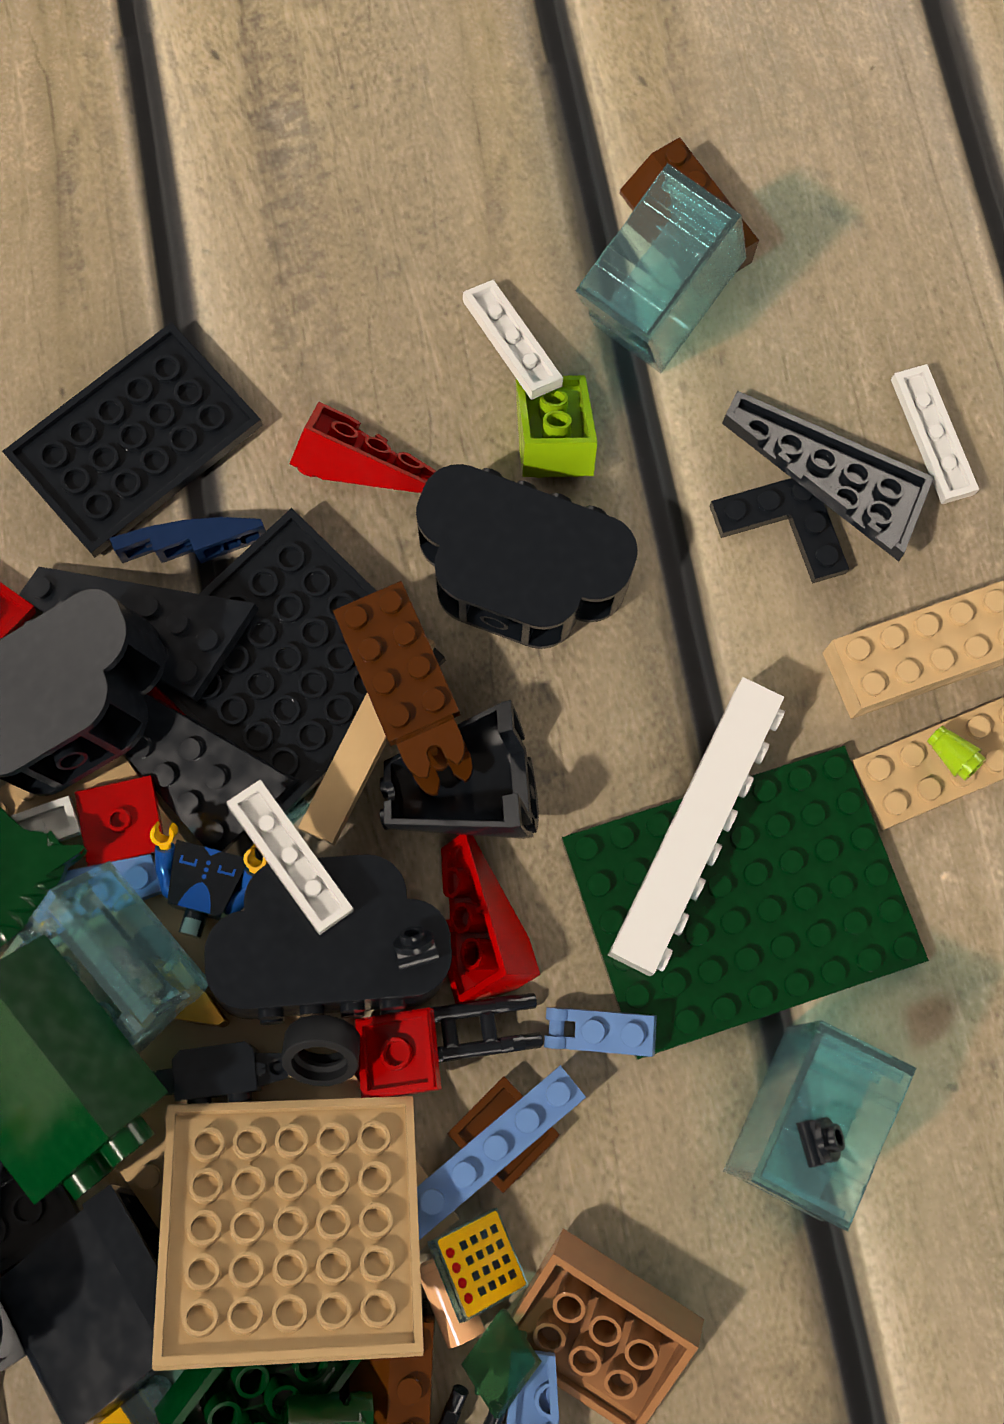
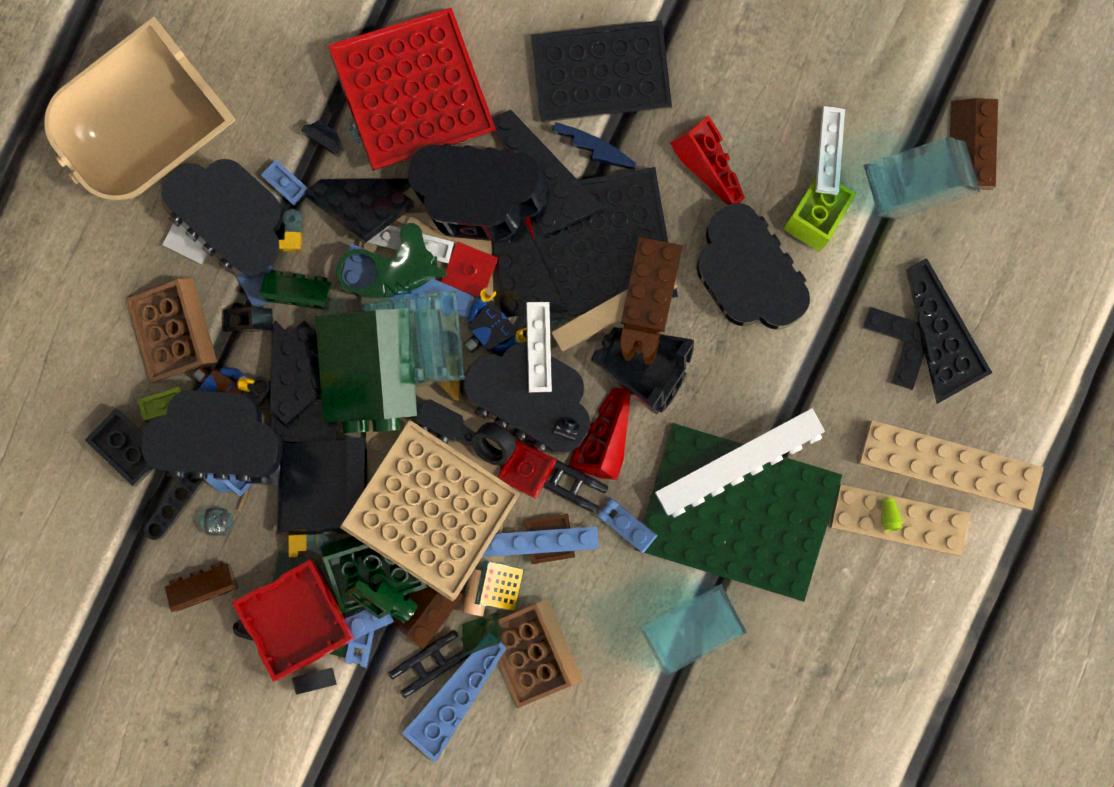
camera: 35 degrees right, 10 degrees up
(820, 1141) = (682, 631): black plate -> none
(934, 434) = (1011, 350): white plate -> none

